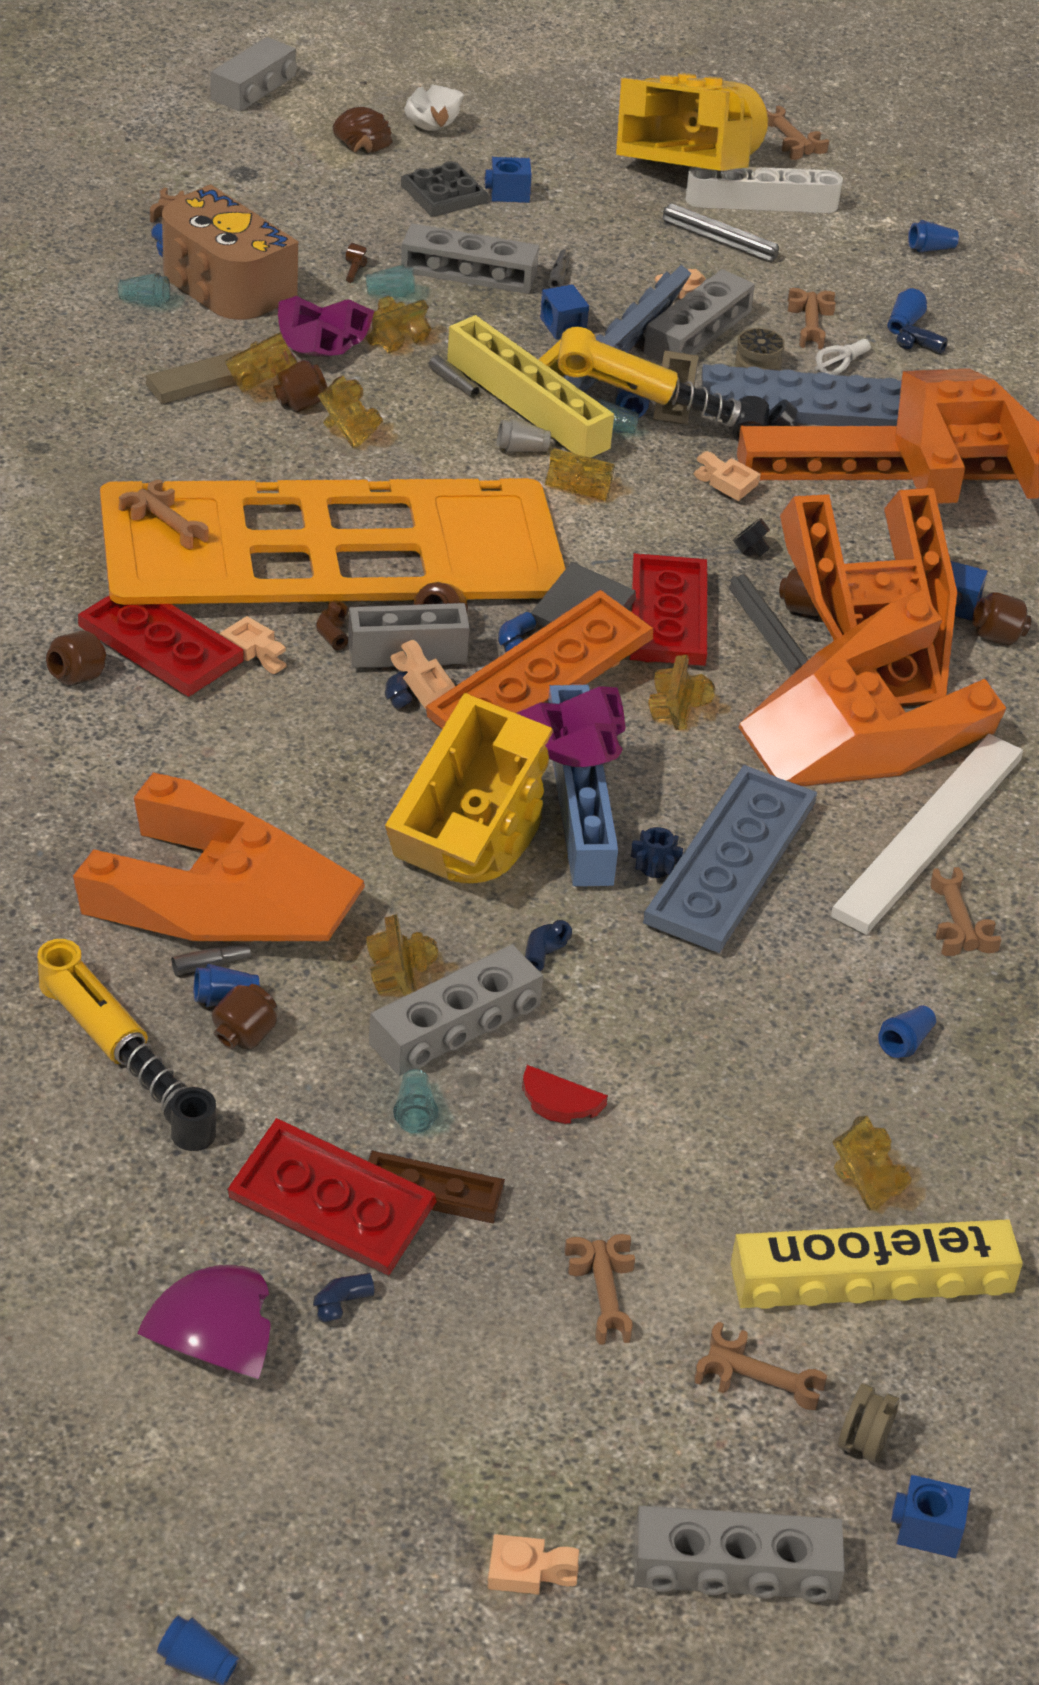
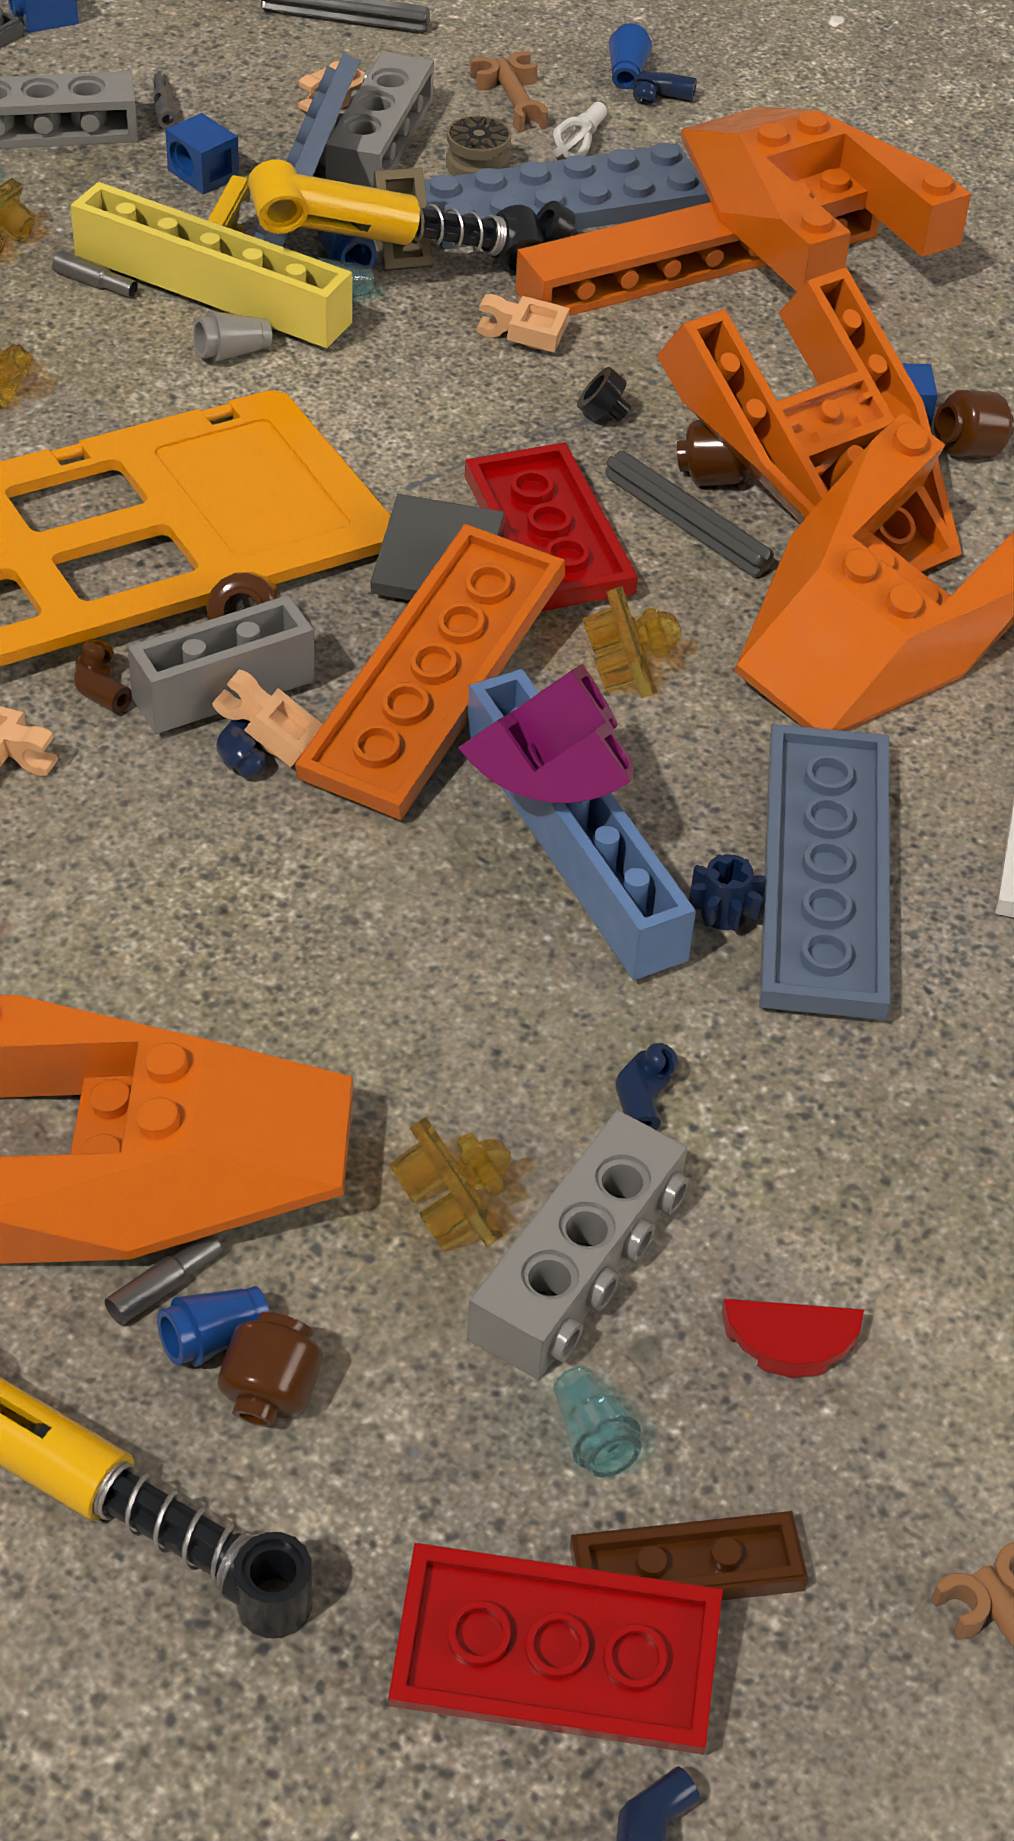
camera: 20 degrees left, 5 degrees up
(473, 795) = (457, 886): yellow brick -> none
(510, 631) = (356, 616): blue arm -> none
(580, 474) = (335, 368): clear yellow hips -> none

